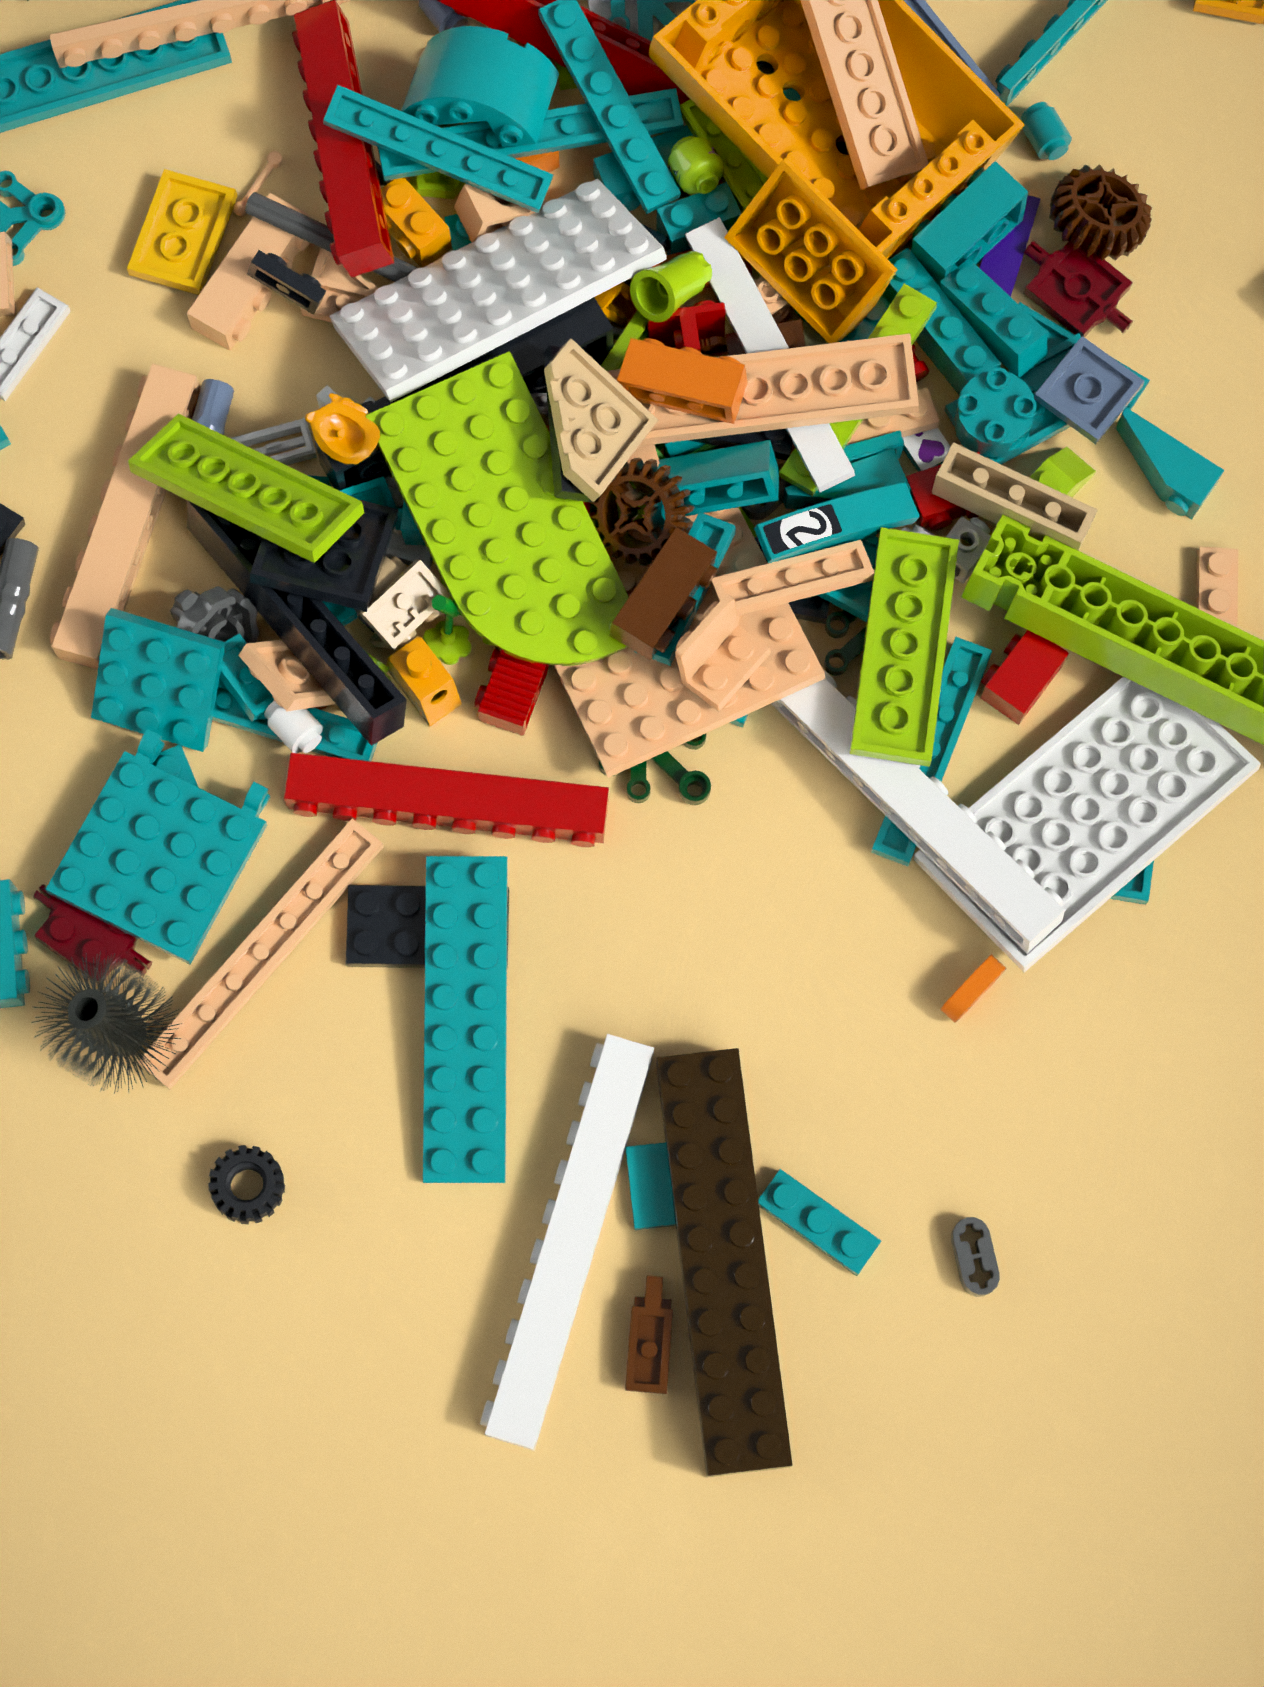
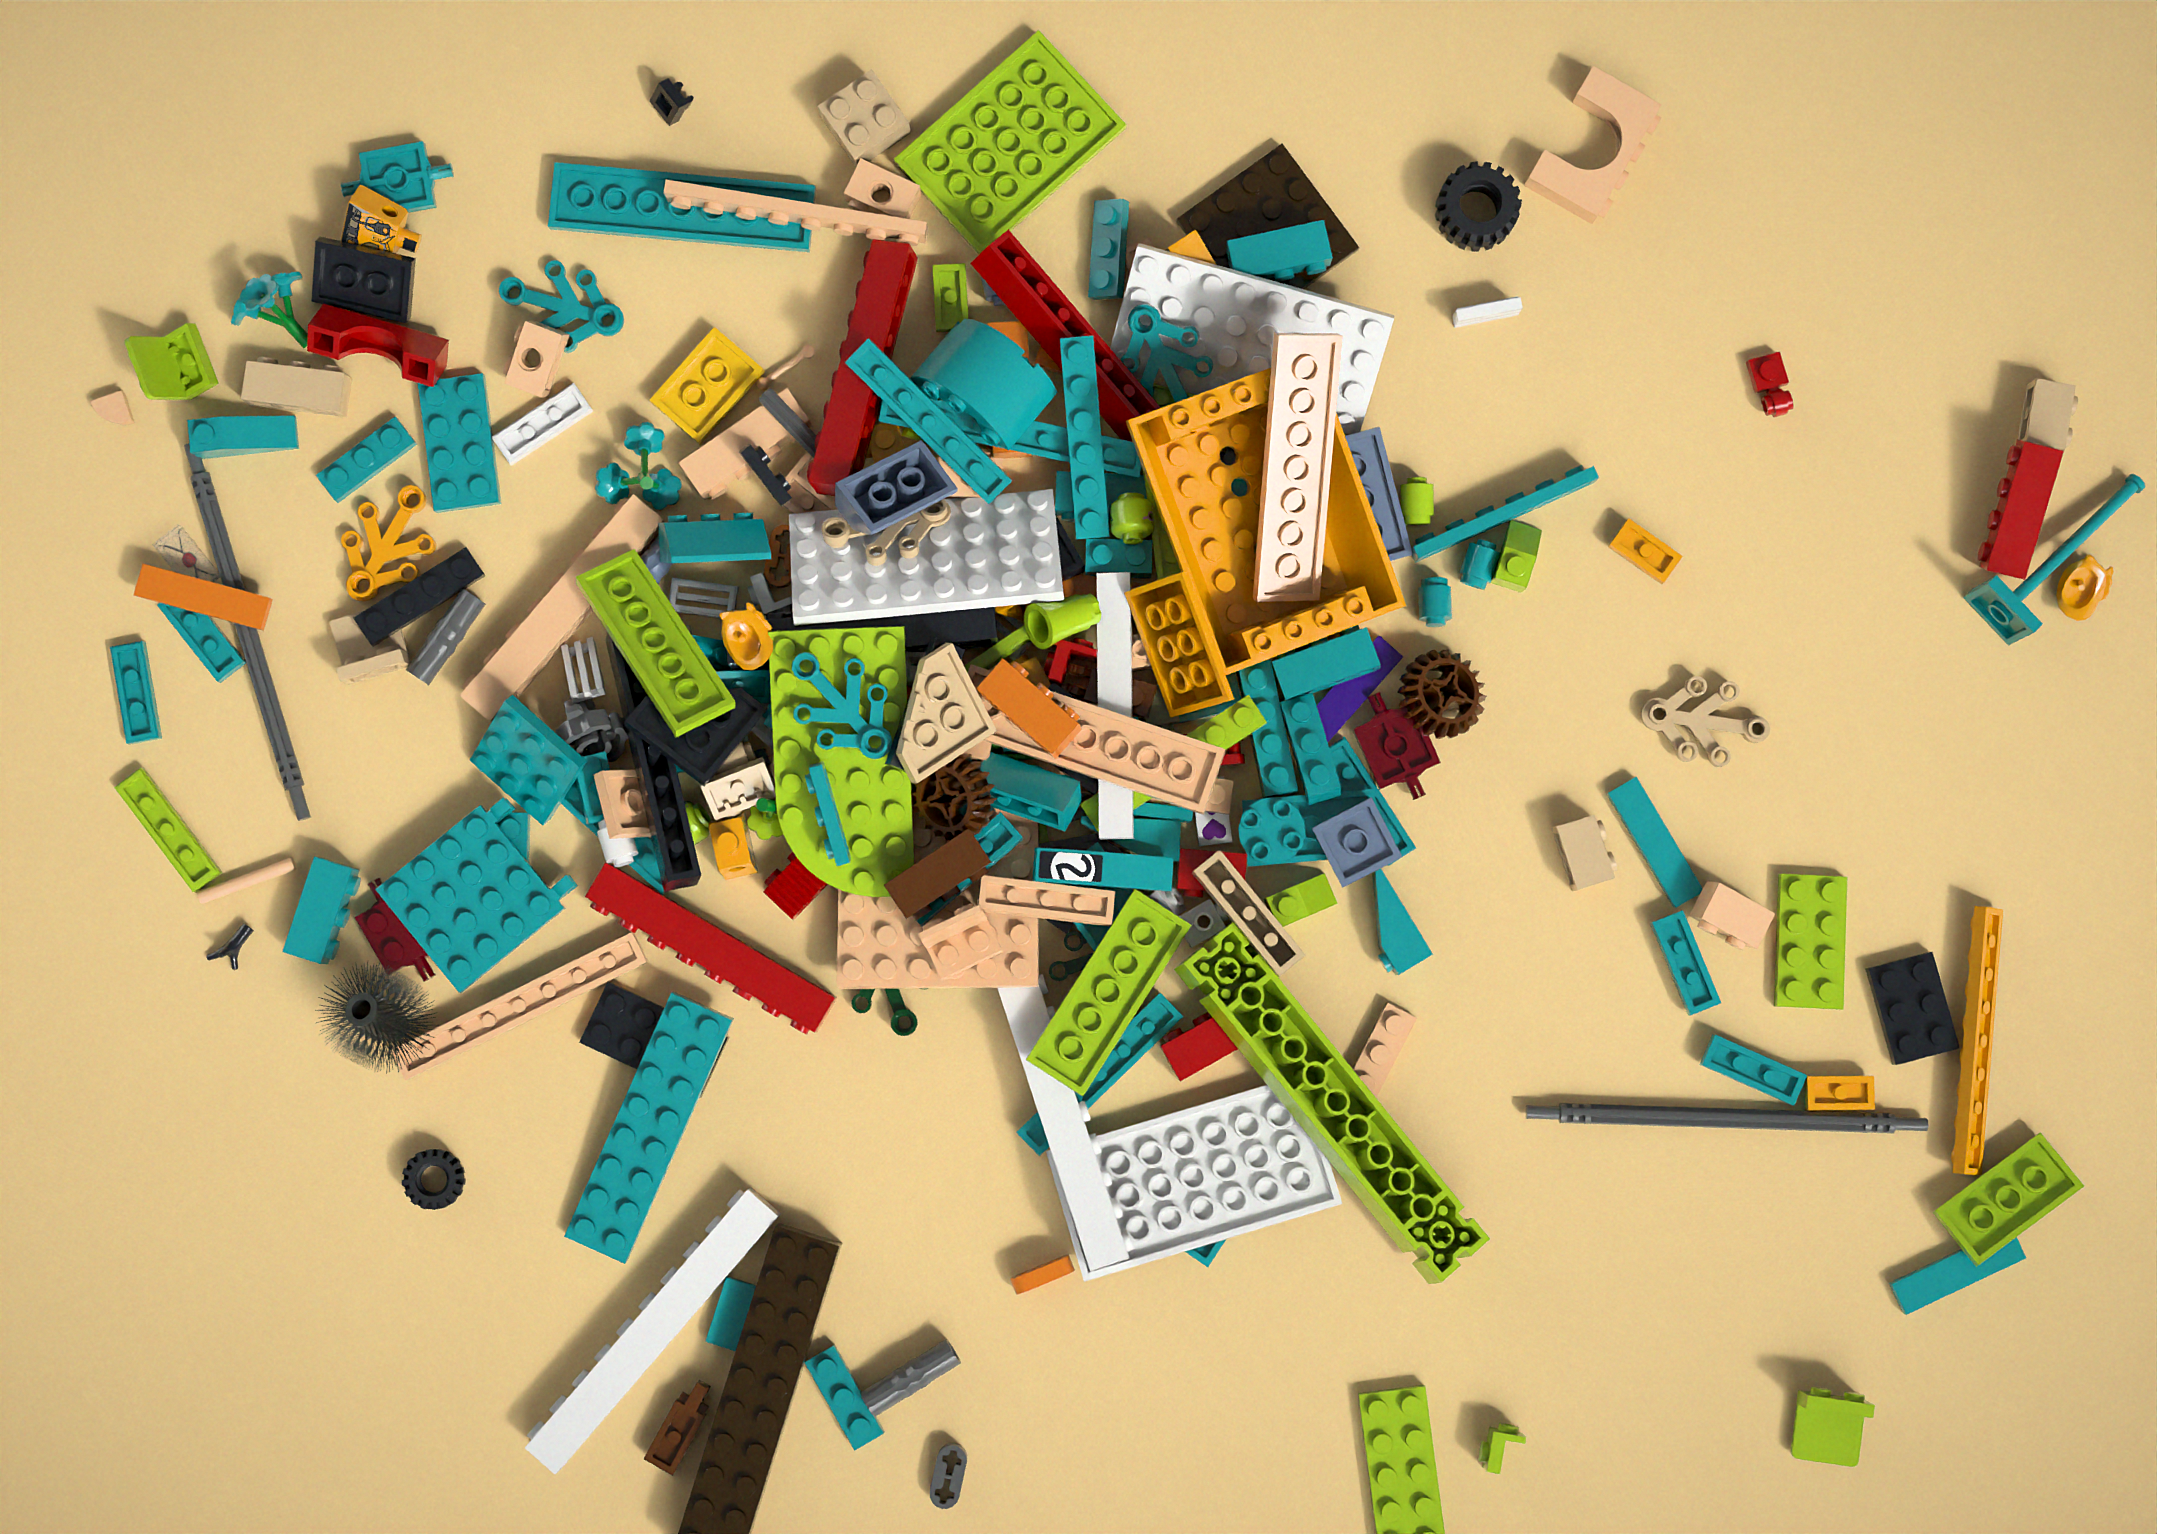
camera: 25 degrees right, 10 degrees up
(141, 313) = (659, 488): none -> teal plant
(164, 554) = (578, 650): none -> white tile
(260, 373) = (713, 539): none -> teal slope
(348, 366) = (776, 555): none -> orange beam
(398, 41) = (950, 295): none -> lime plate
(430, 224) = (892, 489): none -> sand blue slope
(481, 242) = (837, 532): none -> tan plant
(486, 458) = (845, 709): none -> teal plant
(516, 576) = (827, 814): none -> teal plate
(882, 1165) = (910, 1378): none -> dark grey axle
(979, 42) = (1417, 501): none -> lime brick
(1073, 77) = (1479, 564): none -> teal brick
(1108, 58) = (1517, 556): none -> lime slope

